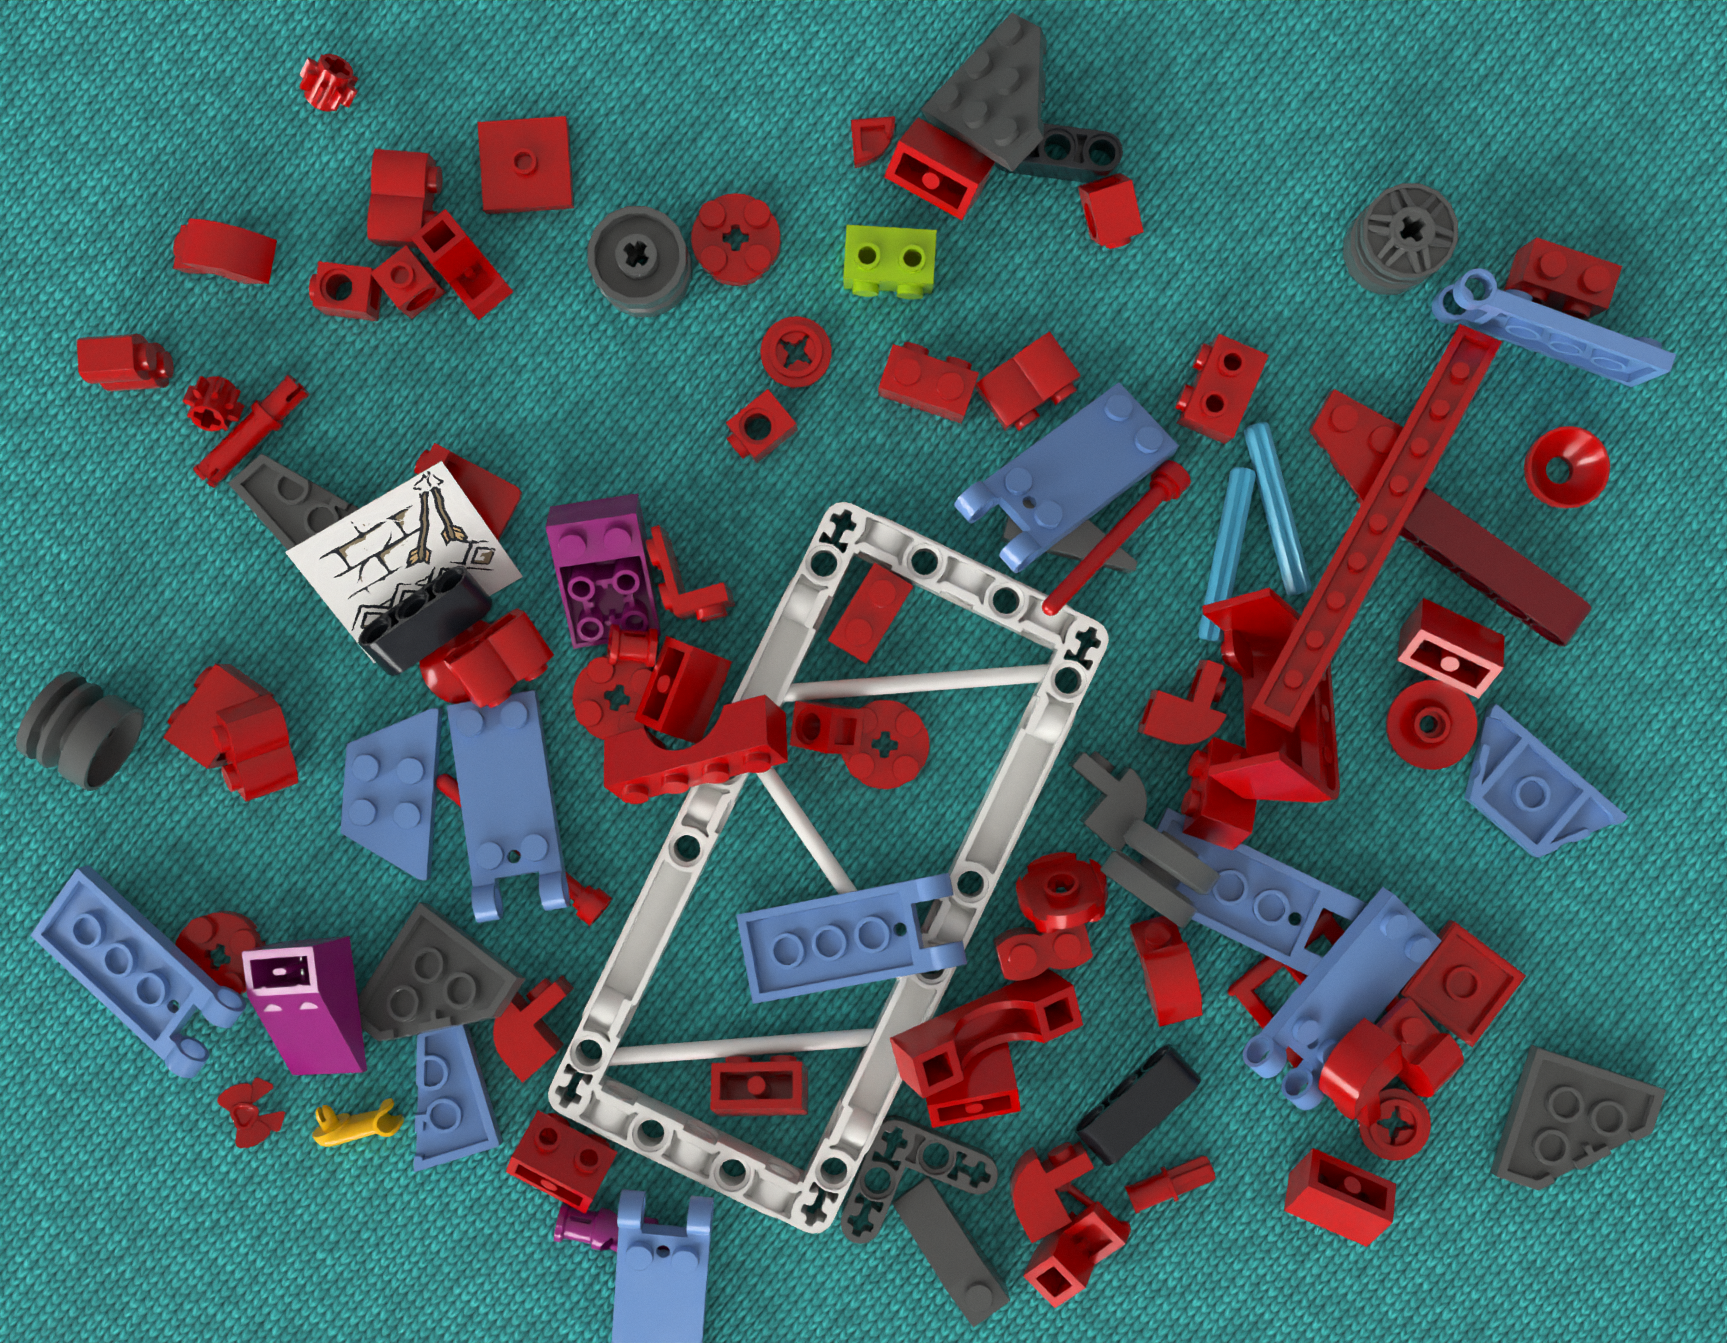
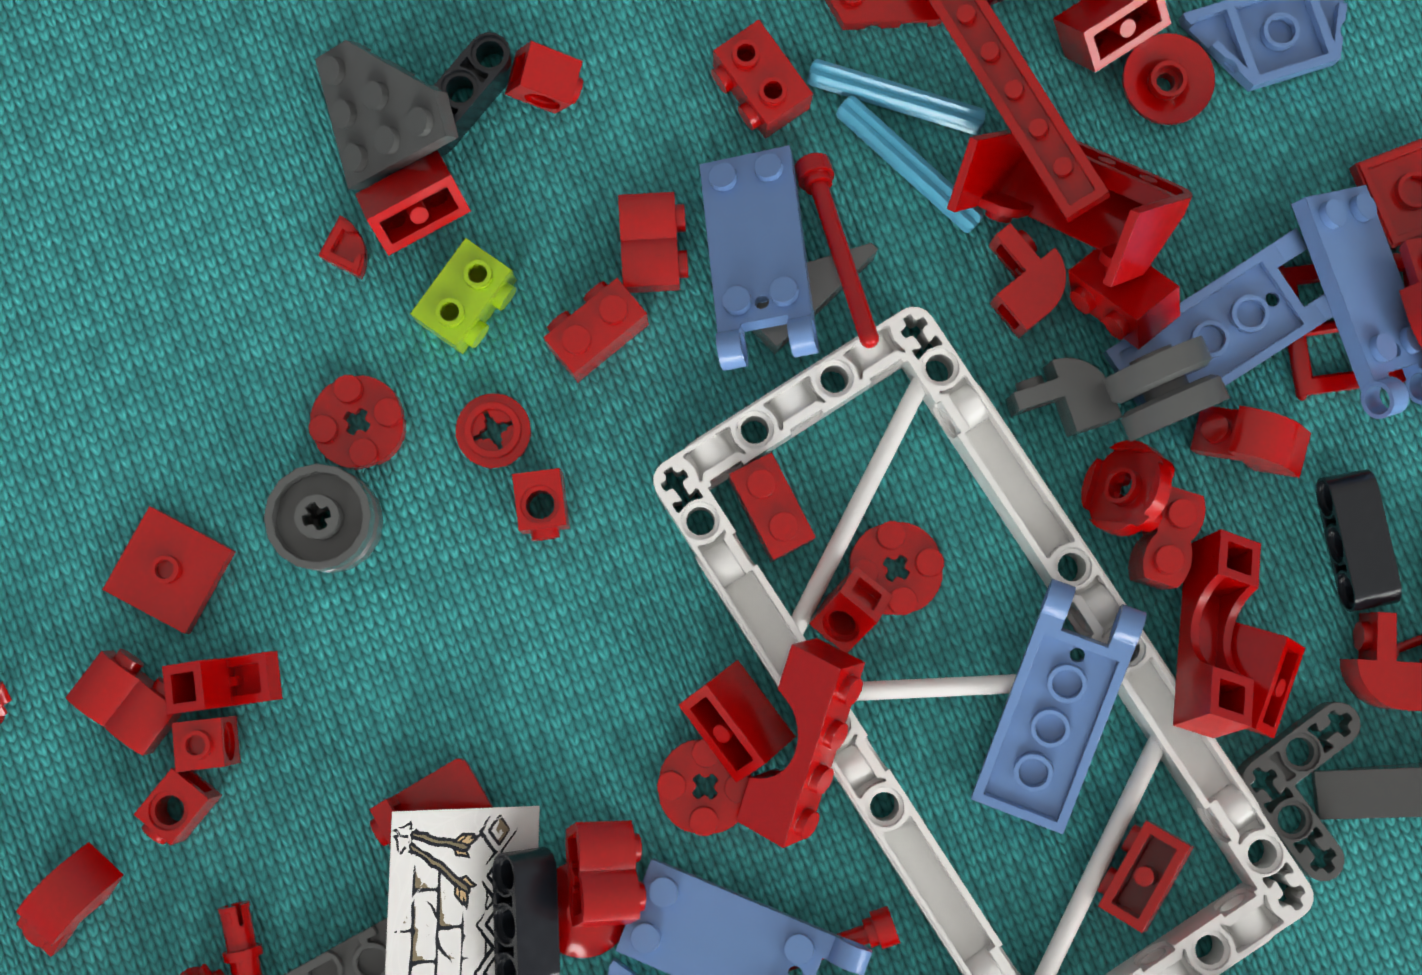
camera: 60 degrees left, 5 degrees down
(603, 567) = (581, 726): magenta slope -> none
(632, 645) = (667, 742): red bush -> none
(704, 603) = (671, 650): red bracket -> none

